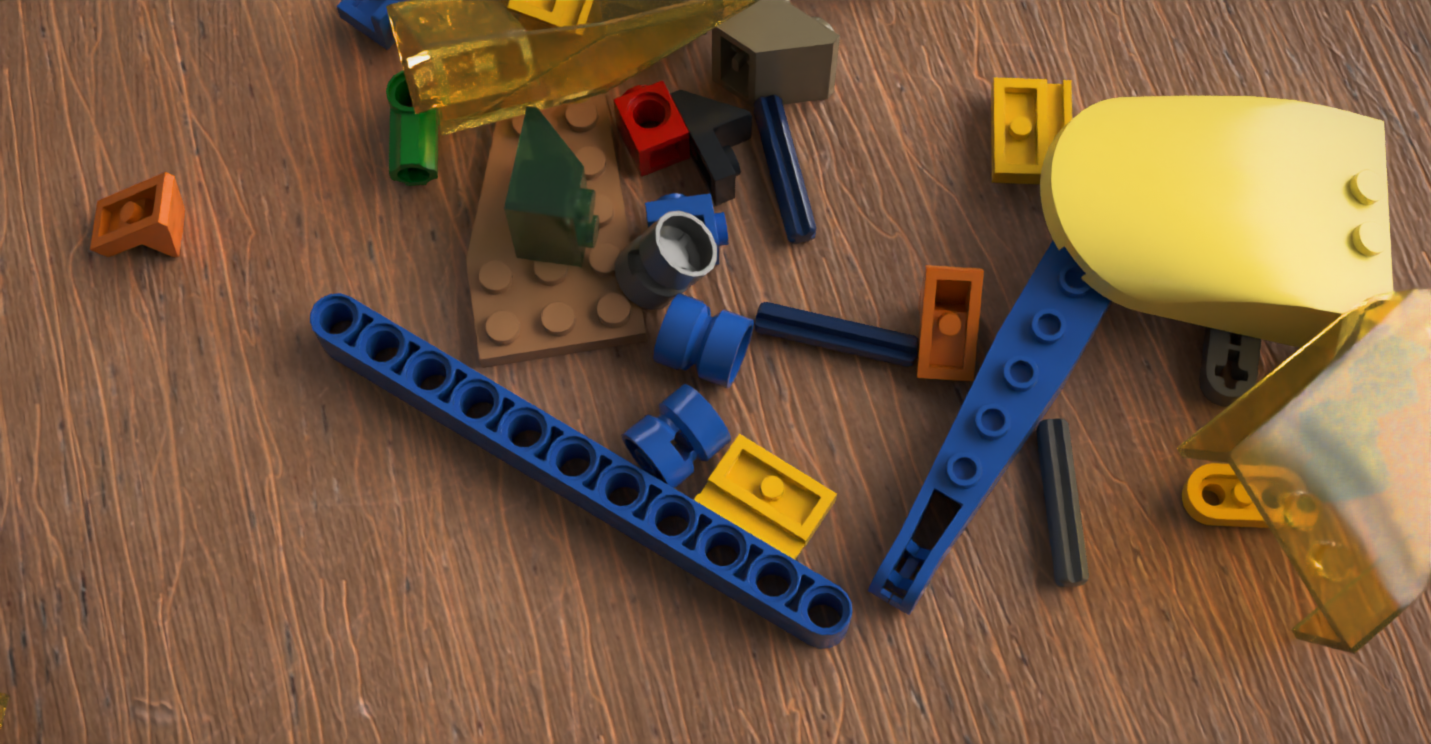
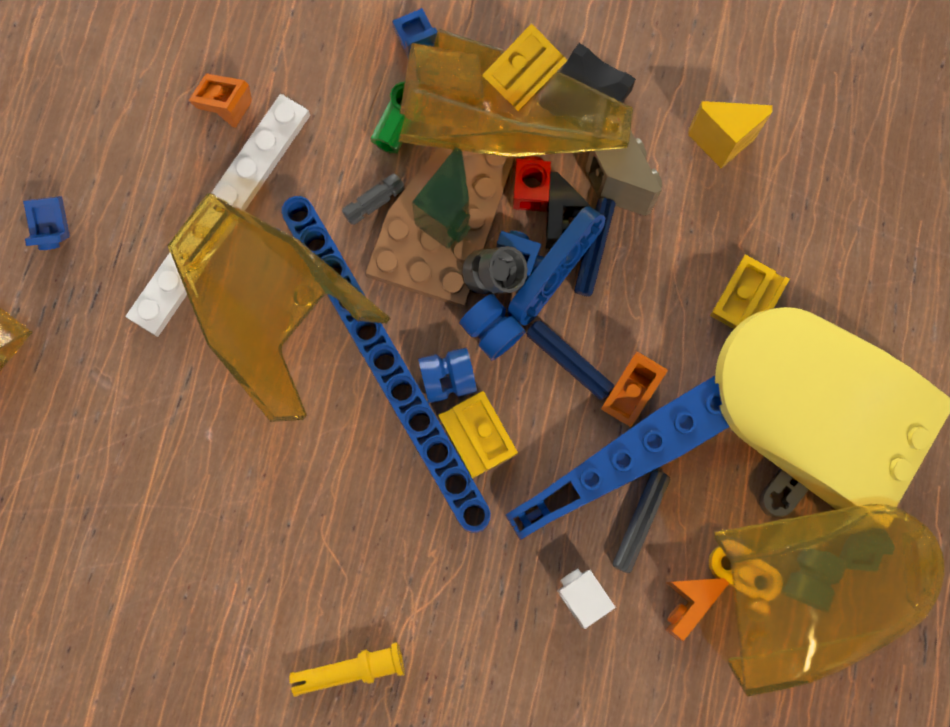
camera: 25 degrees right, 10 degrees up
(215, 395) = (238, 187): none -> white plate
(327, 455) = (252, 293): none -> clear yellow windscreen
(435, 255) = (373, 199): none -> dark grey axle
(747, 213) = (556, 265): none -> blue beam
(1046, 647) = (585, 597): none -> white brick
(1204, 562) = (700, 597): none -> orange slope

